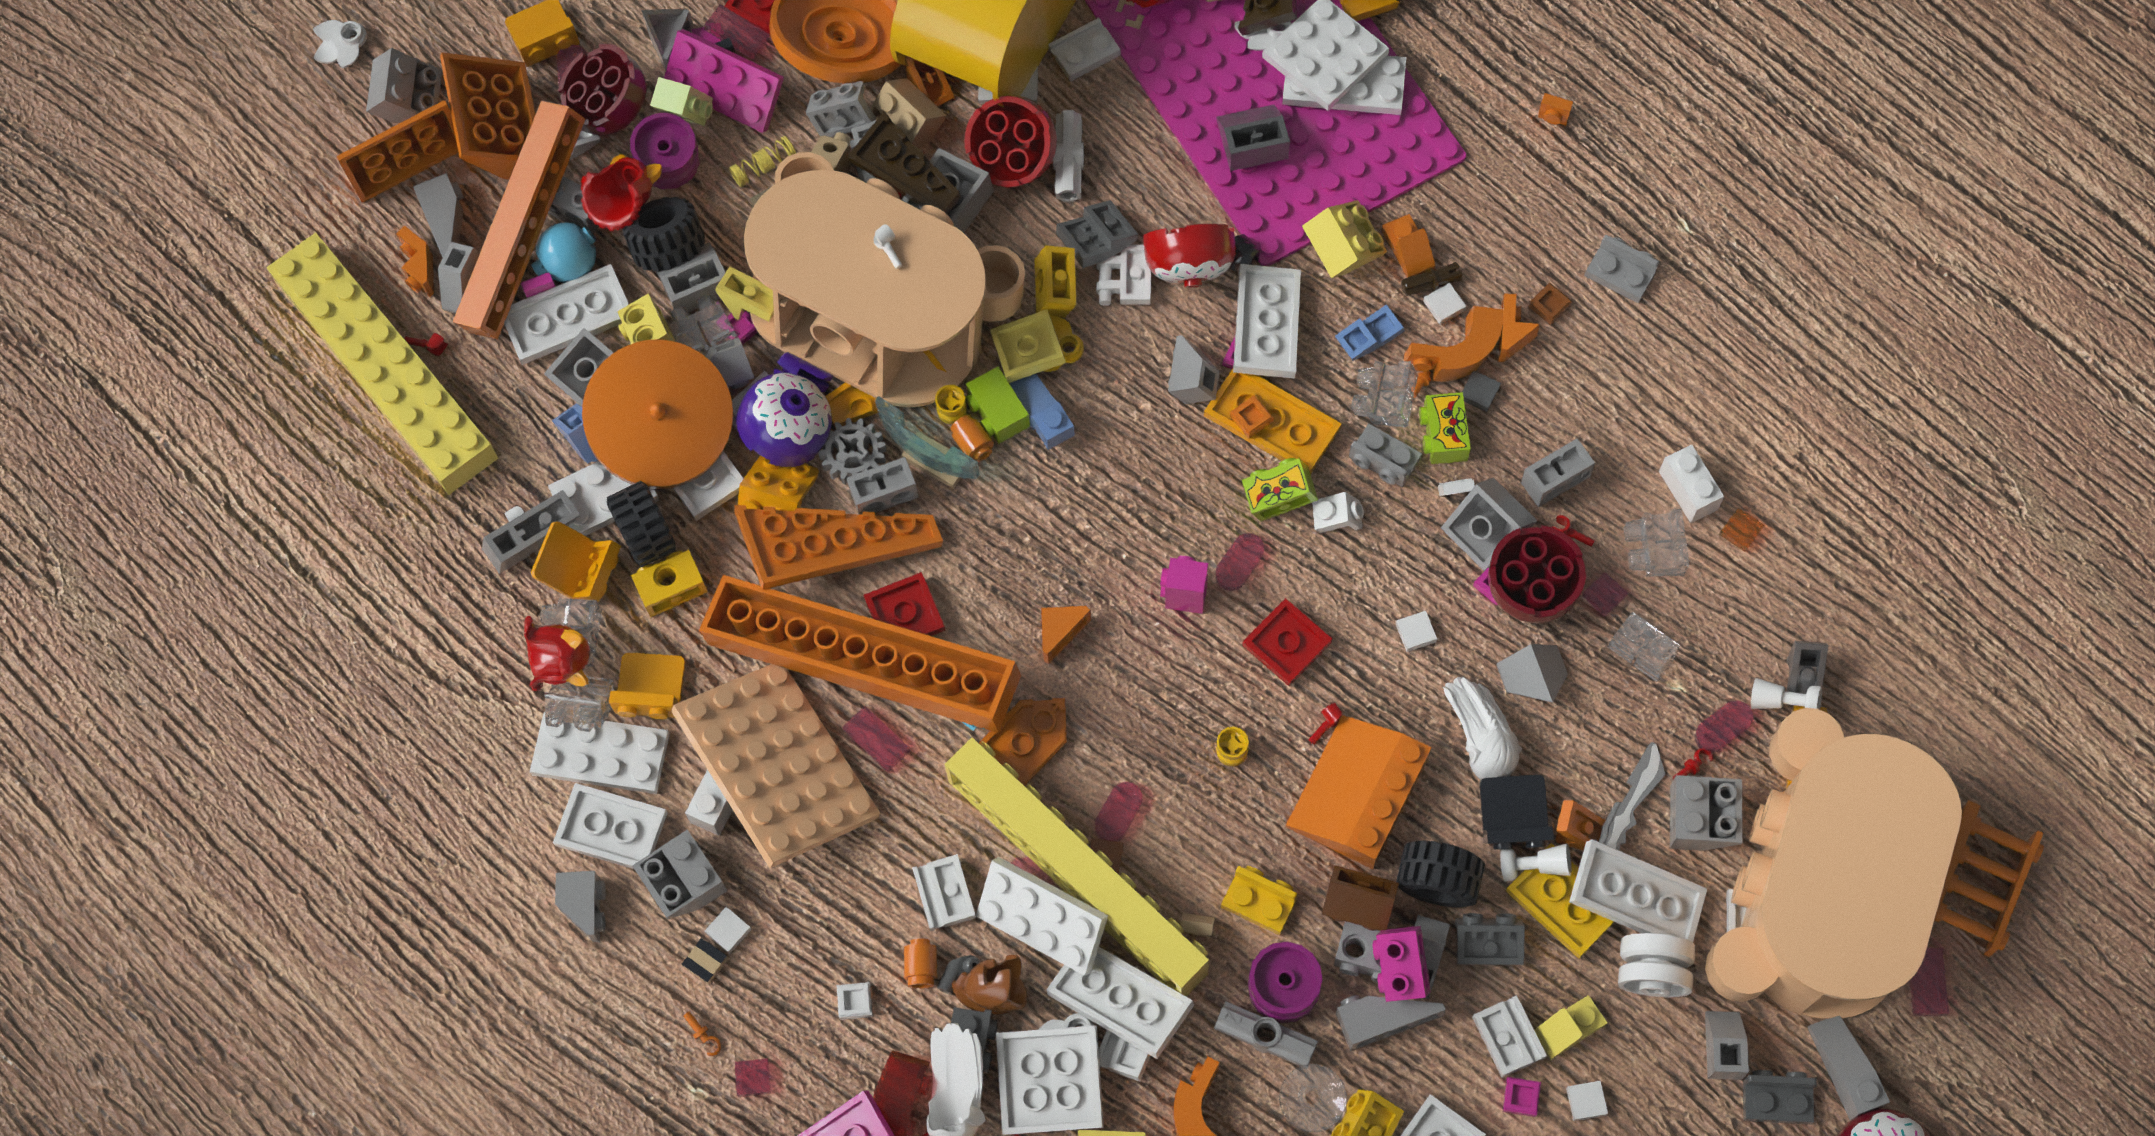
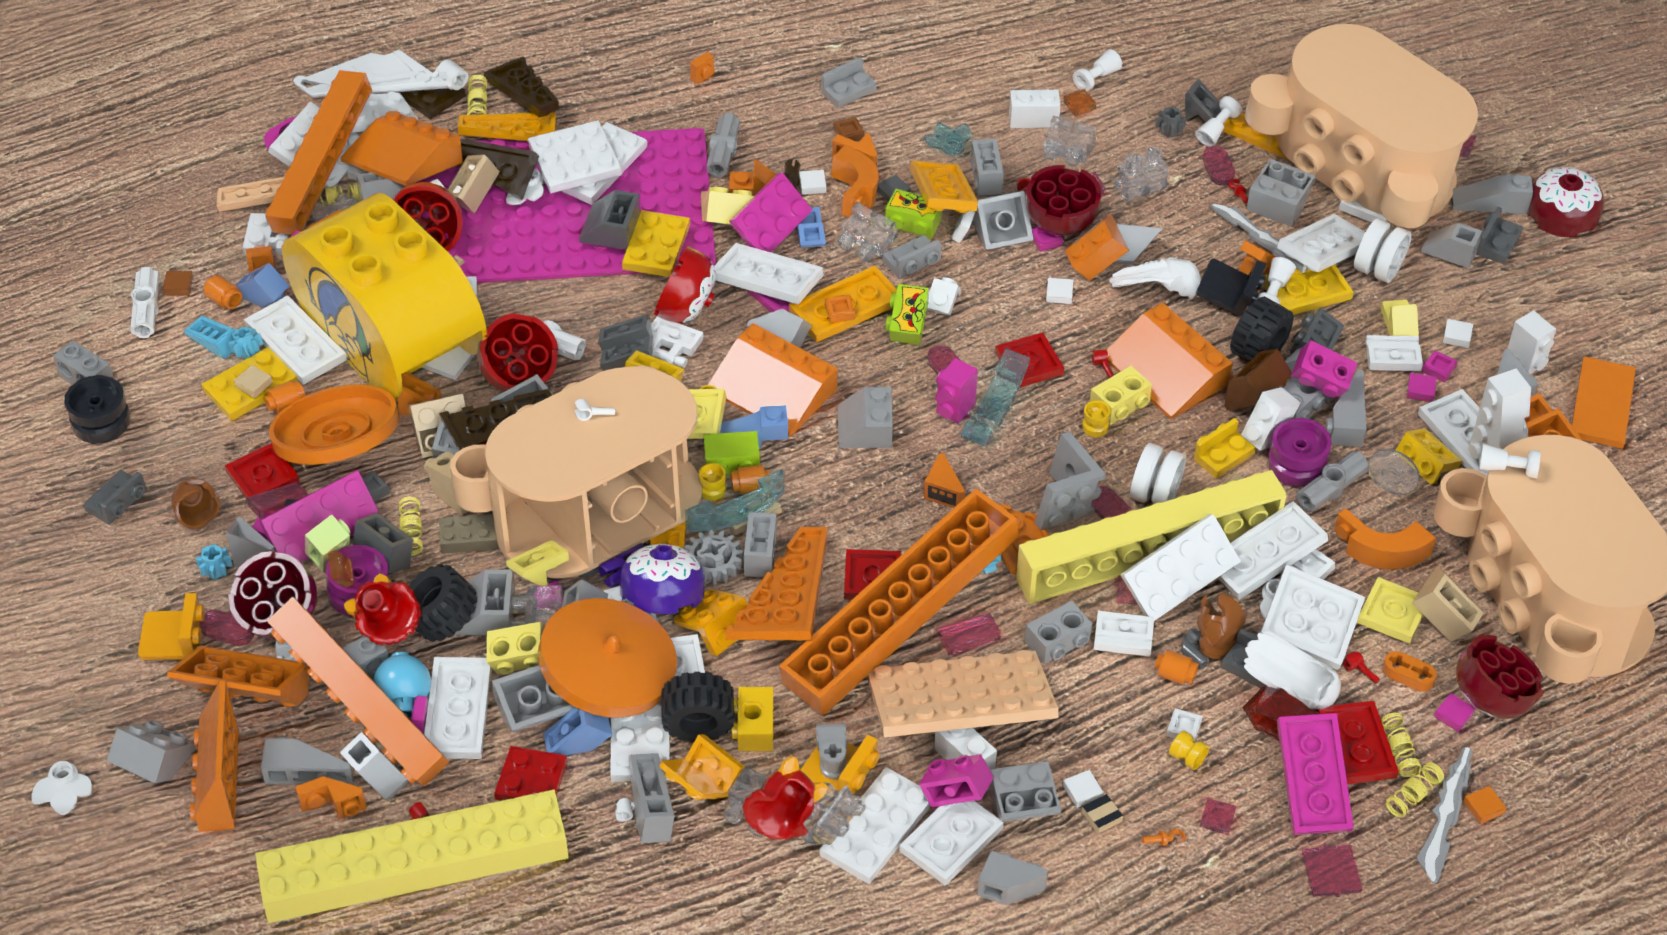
camera: 70 degrees left, 20 degrees down
(519, 418) = (529, 773): none -> red plate
(633, 19) = (214, 561): none -> medium azure gear
(647, 129) = (341, 569): none -> clear orange tile
(659, 666) = (832, 748): none -> light grey piece
(659, 802) = (956, 780): none -> dark pink brick
(720, 148) = (386, 538): none -> dark grey brick
(795, 102) = (376, 486): none -> dark grey tile
(816, 1016) = (1187, 749): none -> yellow wheel
(839, 109) = (407, 451): light grey bracket -> none
(916, 820) = (1058, 632): none -> light grey brick
(1089, 769) = (1074, 486): none -> light grey bracket
(1113, 515) = (866, 419): none -> light grey slope
(1120, 398) = (774, 372): none -> slope
(1164, 843) = (1157, 475): none -> white wheel
(1204, 633) = (998, 398): none -> clear light blue slope
(1255, 193) = (656, 243): none -> yellow plate
(1285, 751) = (1123, 393): none -> light yellow brick
(1311, 929) = (1271, 409): none -> white brick
(1347, 285) = (771, 214): none -> dark pink plate
(1445, 188) = (723, 145): none -> light grey piece
(1474, 1086) = (1421, 387): none -> dark pink tile
(1488, 640) = (1097, 248): none -> orange slope
(1492, 439) = (943, 186): none -> light orange plate
(1599, 411) = (949, 140): none -> clear light blue plate
(1760, 635) = (1170, 121): none -> dark grey gear
(1815, 531) = (1106, 64): none -> white piece

